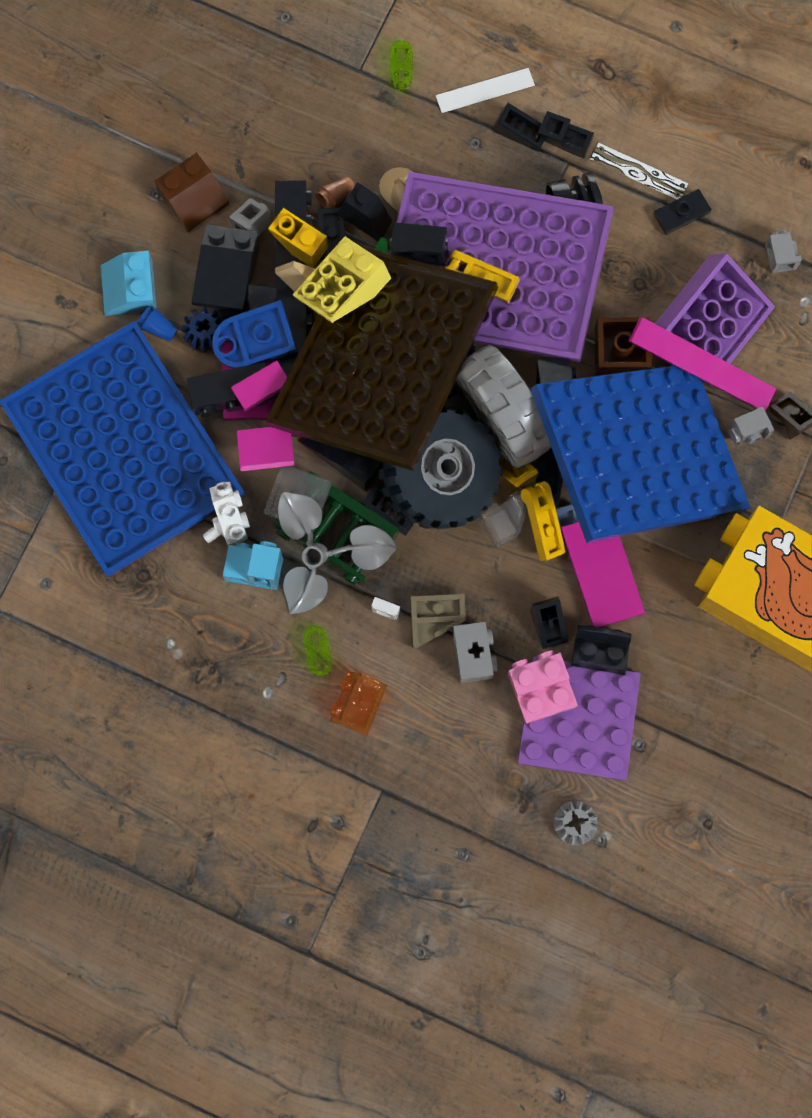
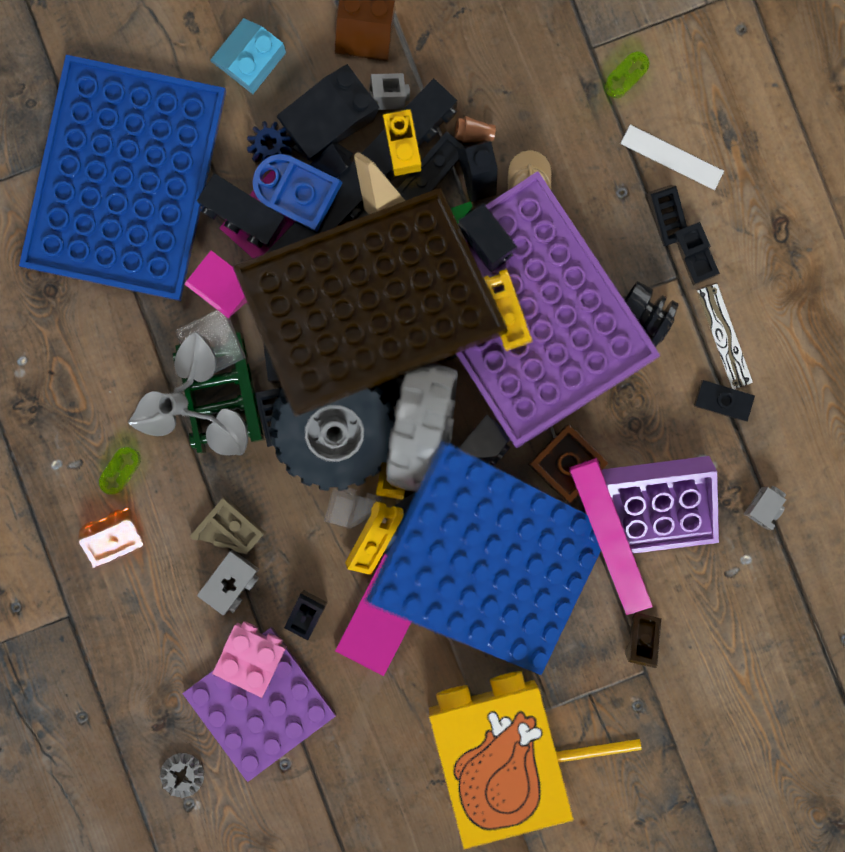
camera: 45 degrees right, 10 degrees up
(157, 324) = (239, 106): blue cone -> none
(229, 520) = (146, 307): white brick -> none
(255, 565) = (130, 363): medium azure brick -> none
(260, 386) = (260, 232): dark pink tile -> none
(343, 281) = (393, 213): light yellow slope -> none
(385, 608) = (197, 488): white tile -> none
(601, 649) = (323, 672): black bracket -> none
(751, 427) = (602, 617): light grey brick -> none

